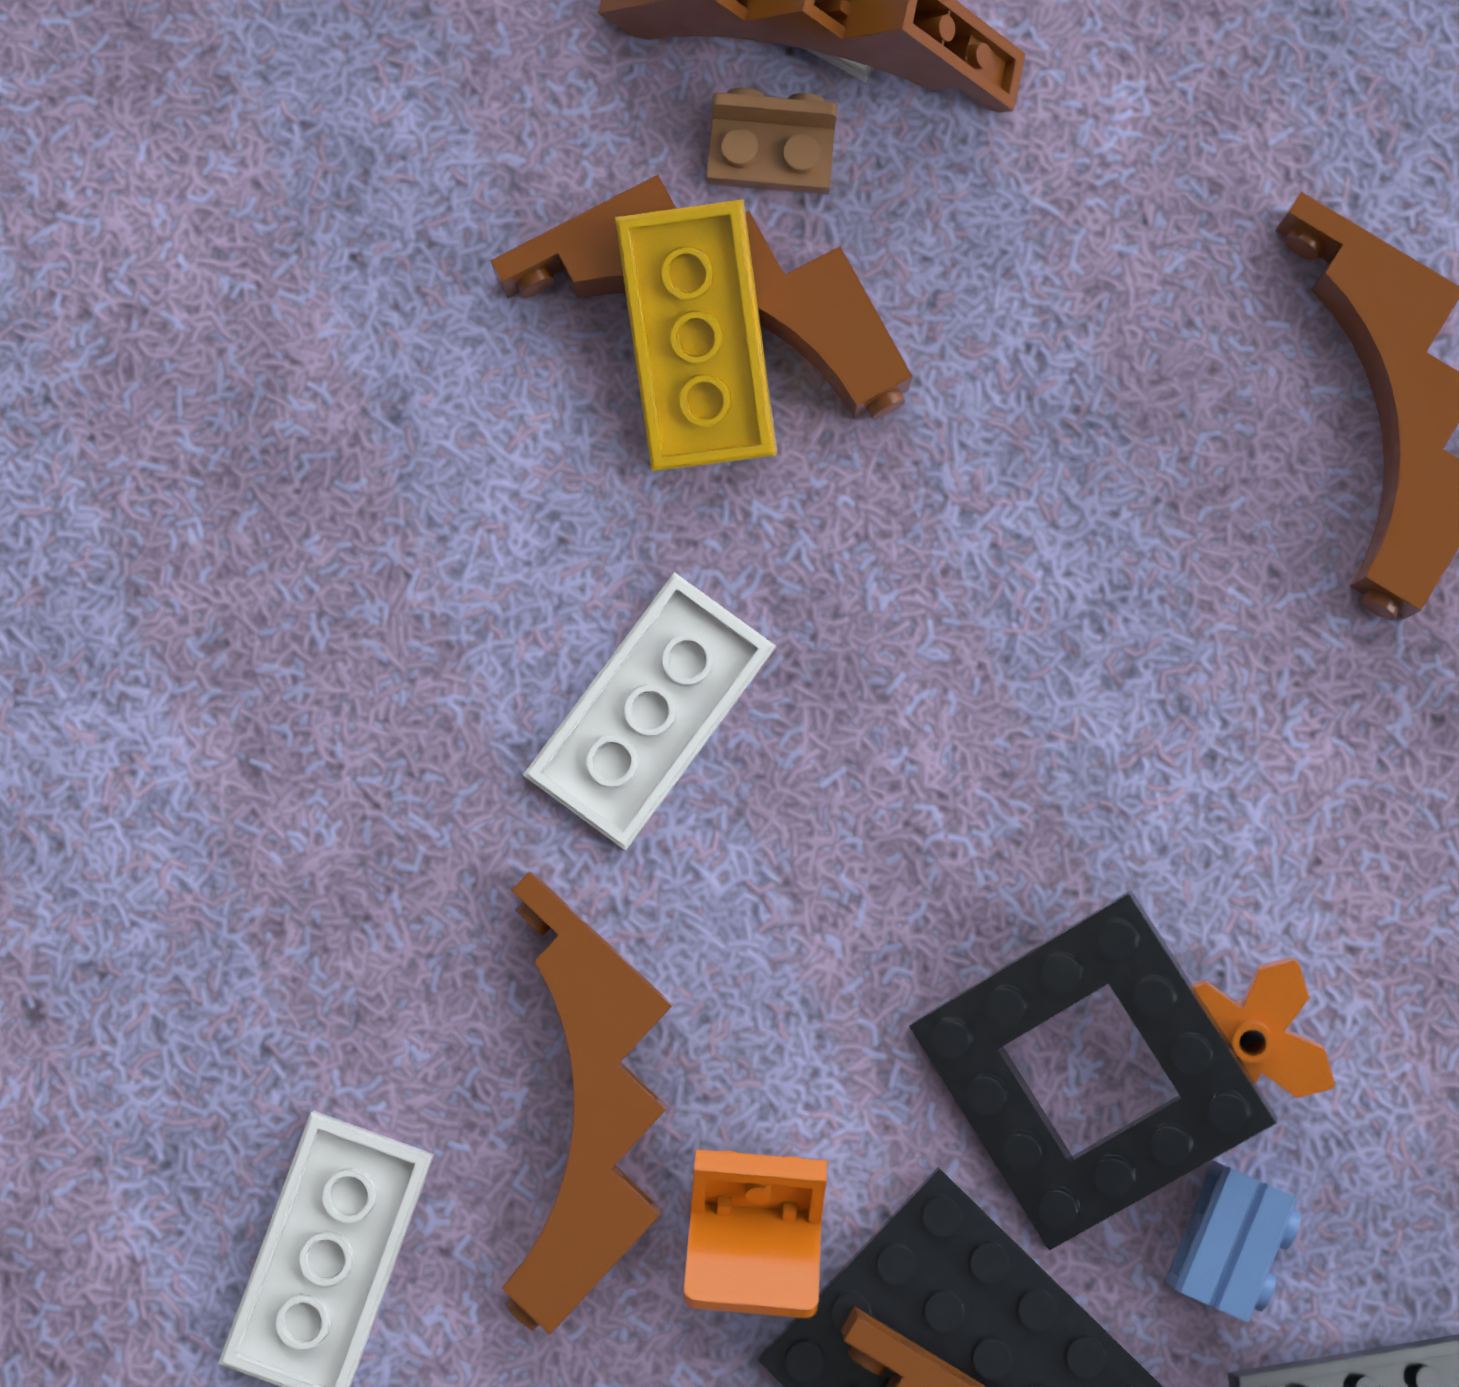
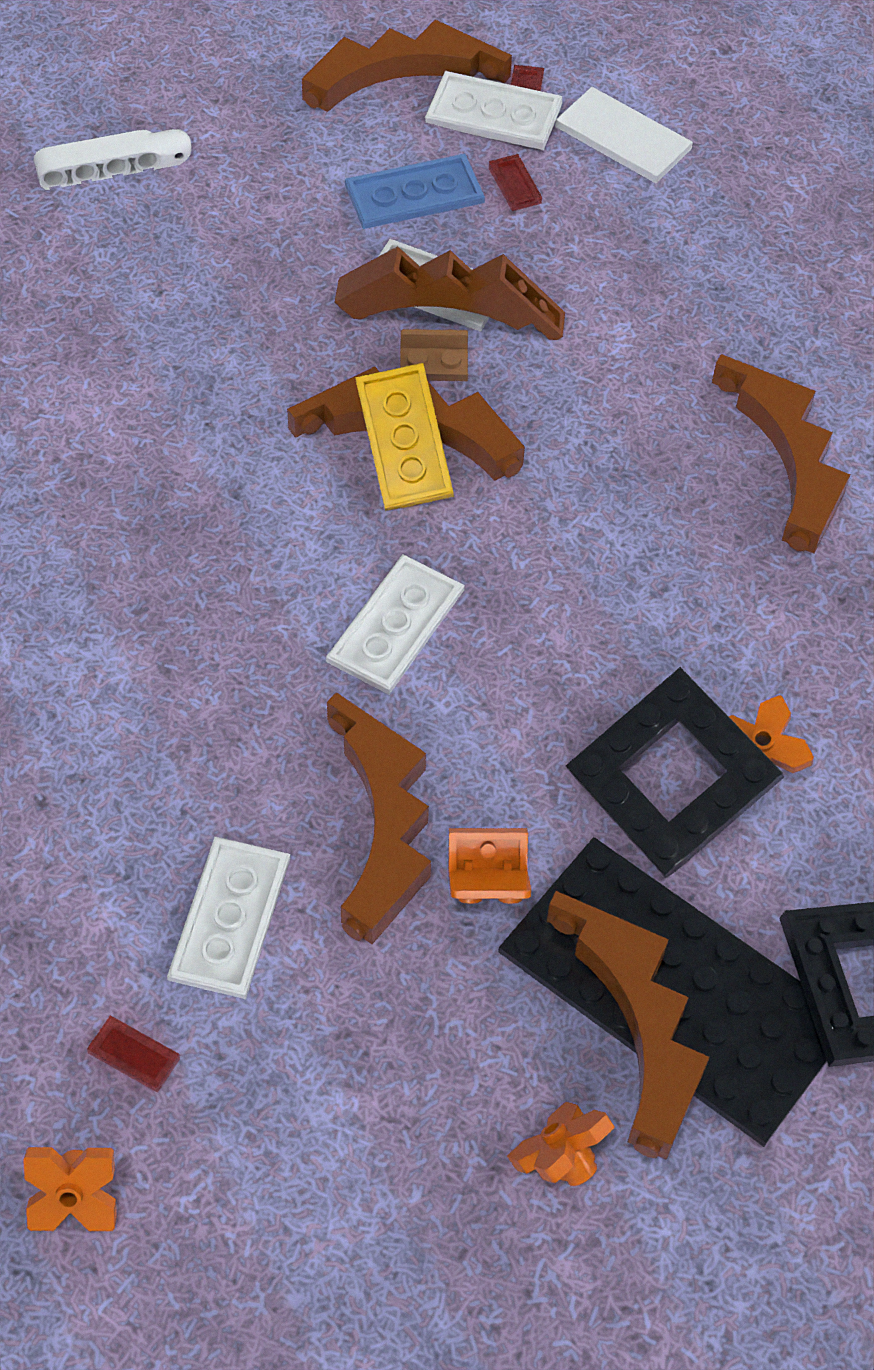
camera: 10 degrees left, 25 degrees down
(1234, 1242) = (771, 859): medium blue brick -> none

